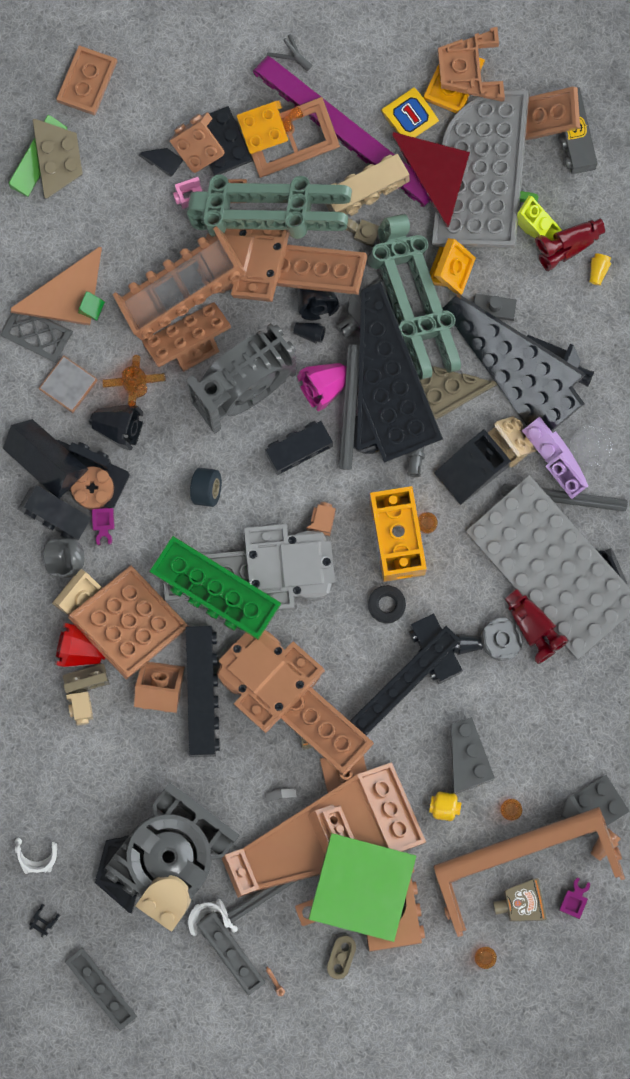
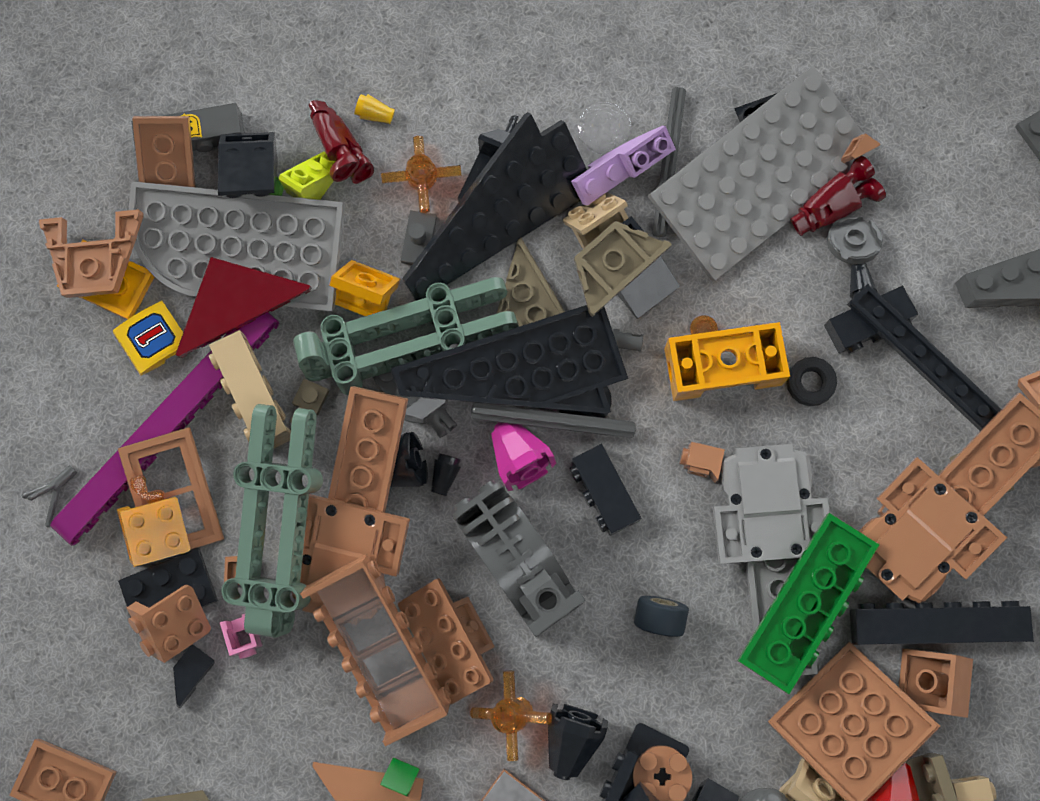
camera: 85 degrees left, 0 degrees up
(103, 521) = (707, 760): magenta plate -> none
(471, 446) = (614, 262): none -> dark tan wing
(544, 174) = (247, 164): none -> black slope
(551, 300) = (421, 183): none -> clear orange bar
(574, 639) = (859, 146): none -> nougat slope

